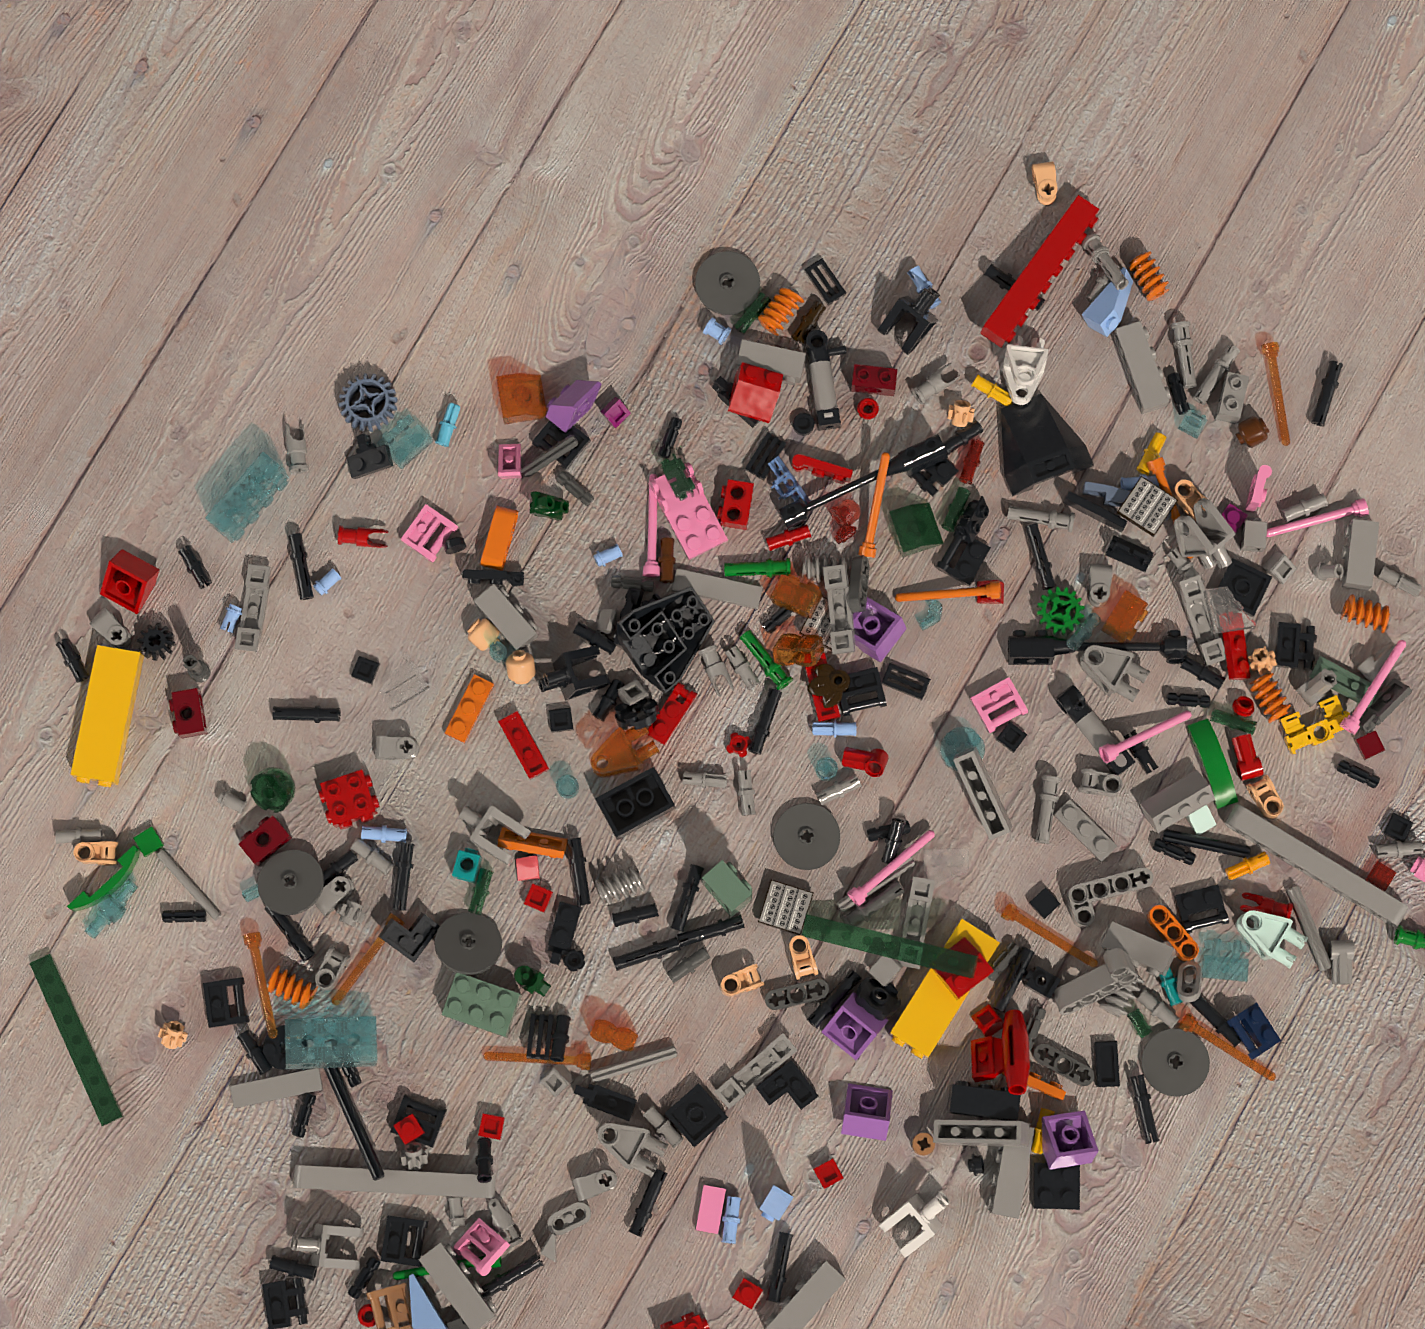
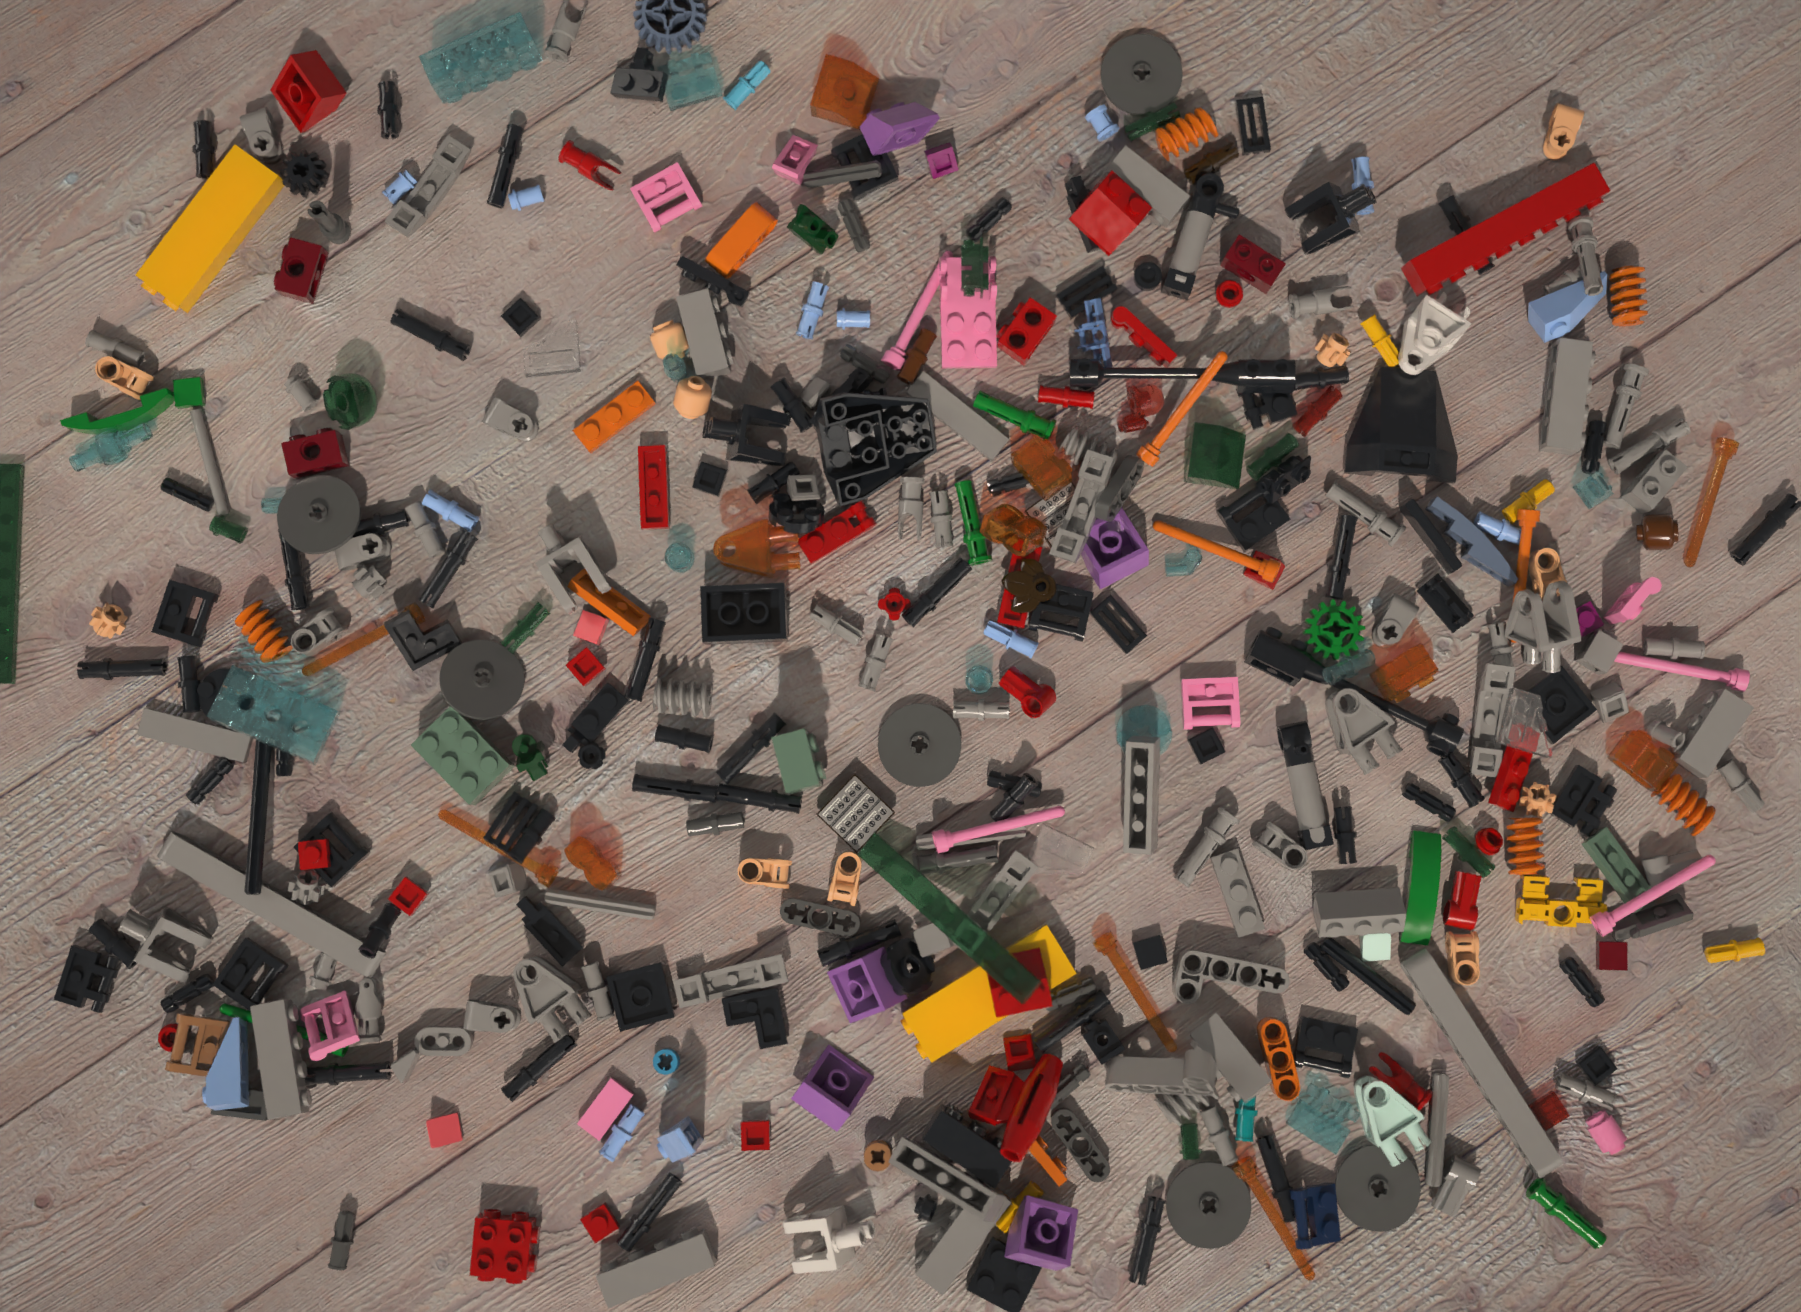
camera: 30 degrees right, 5 degrees up
(198, 1065) = (123, 668): none -> black pin
(227, 926) = (228, 529): none -> clear green pin
(253, 942) = (246, 561): clear orange piece -> none
(349, 799) = (430, 453): red brick -> none
(454, 545) = (687, 224): black tile -> none
(467, 875) = (512, 596): teal brick -> none
(575, 563) = (812, 310): none -> light blue pin
(601, 1282) = (444, 1130): none -> coral slope
(744, 1151) = (675, 1063): none -> dark azure bush
(1106, 1064) = (1129, 1167): black tile -> none
(1110, 751) = (1310, 819): bright pink piece -> none
(1147, 506) = (1494, 559): light grey tile -> none
(1189, 986) = (1269, 1125): light grey plate -> none
(1247, 865) = (1402, 1024): light orange axle -> none
(1300, 1004) = (1357, 1198): none -> dark grey piece
(1316, 688) = (1582, 862): light grey piece -> none
(1322, 596) = (1643, 760): none -> clear orange brick

